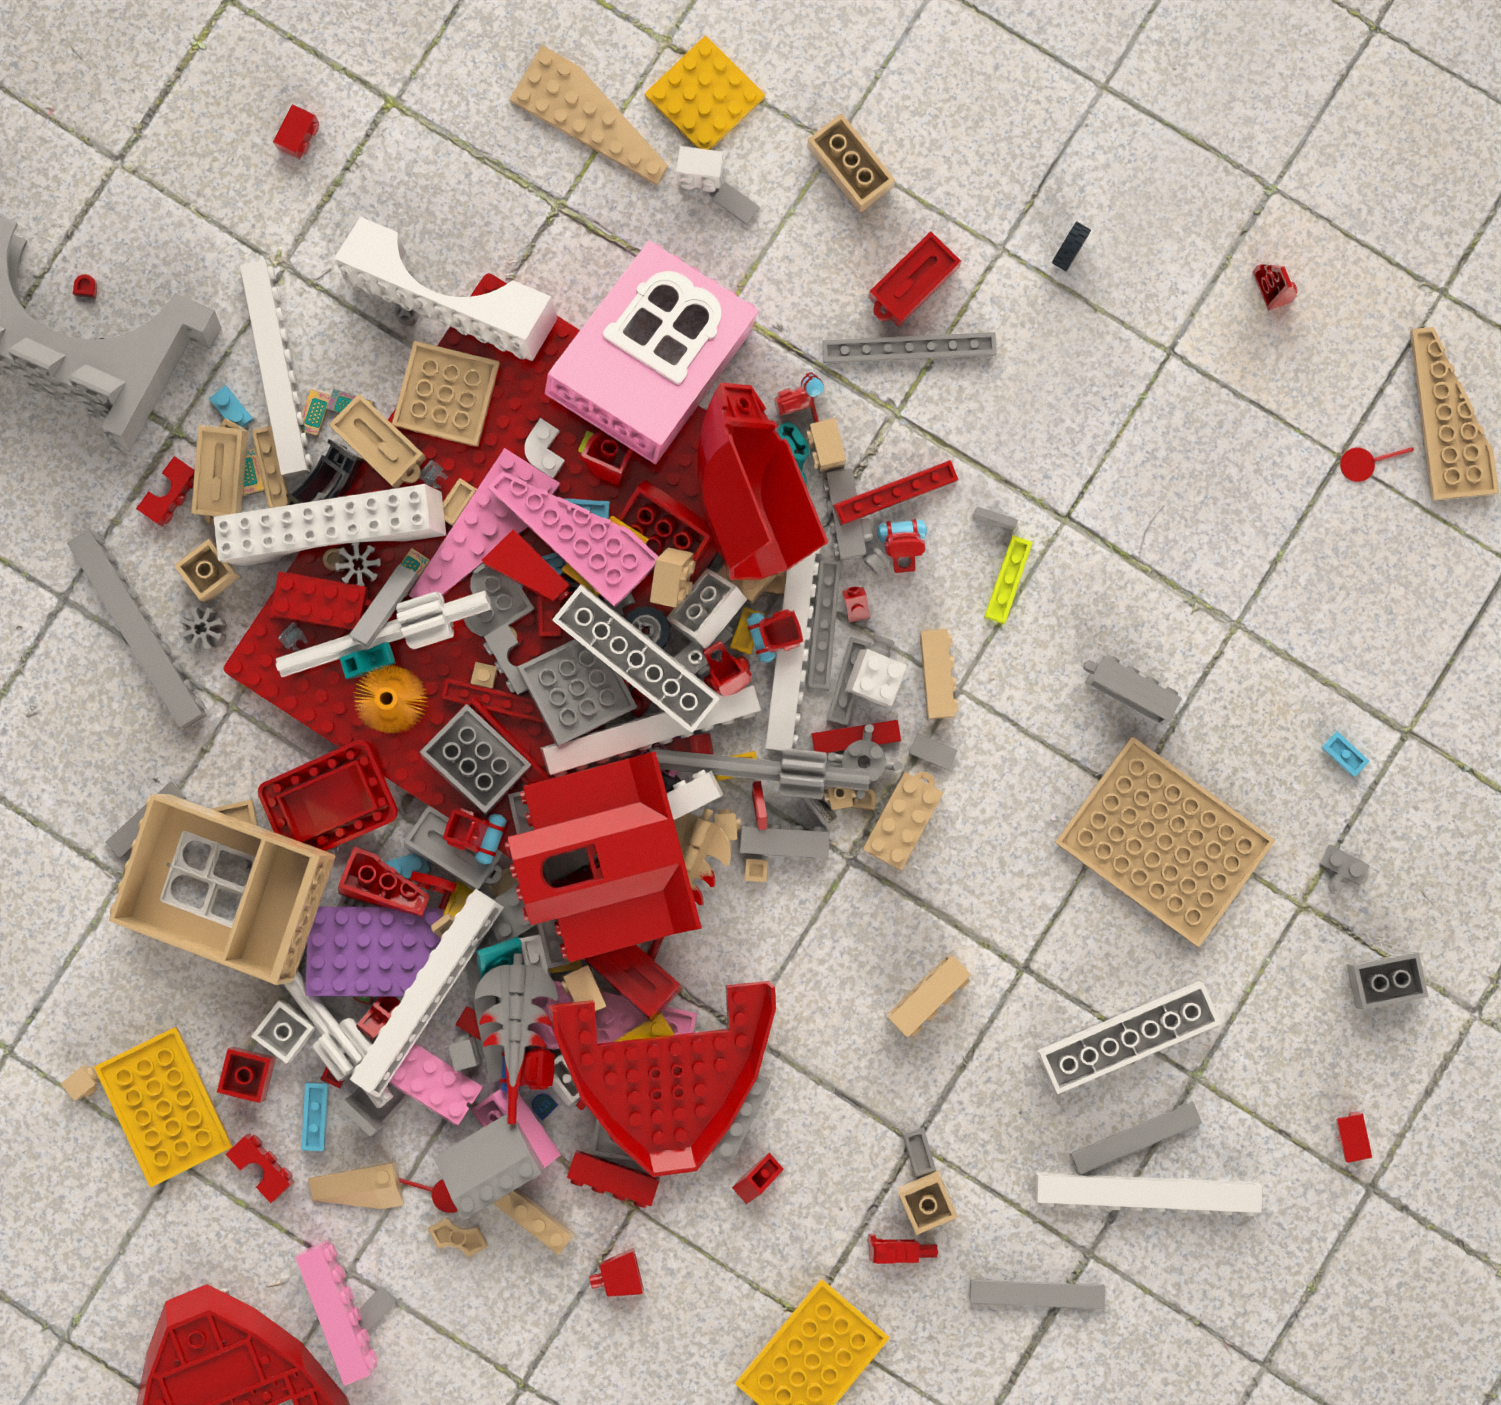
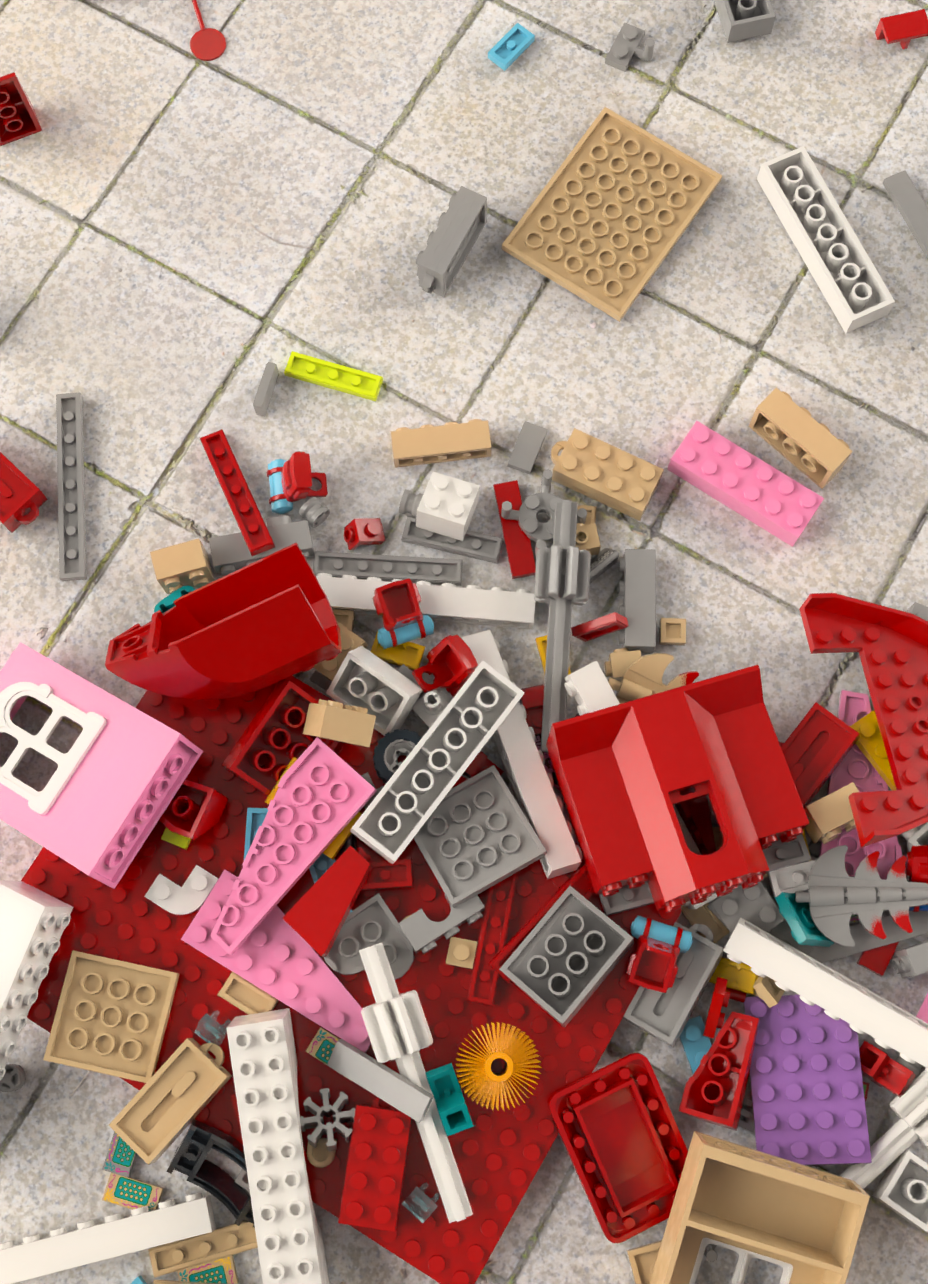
camera: 90 degrees left, 10 degrees down
(801, 397) = (125, 595): red piece -> none
(889, 943) = (744, 483): none -> bright pink brick

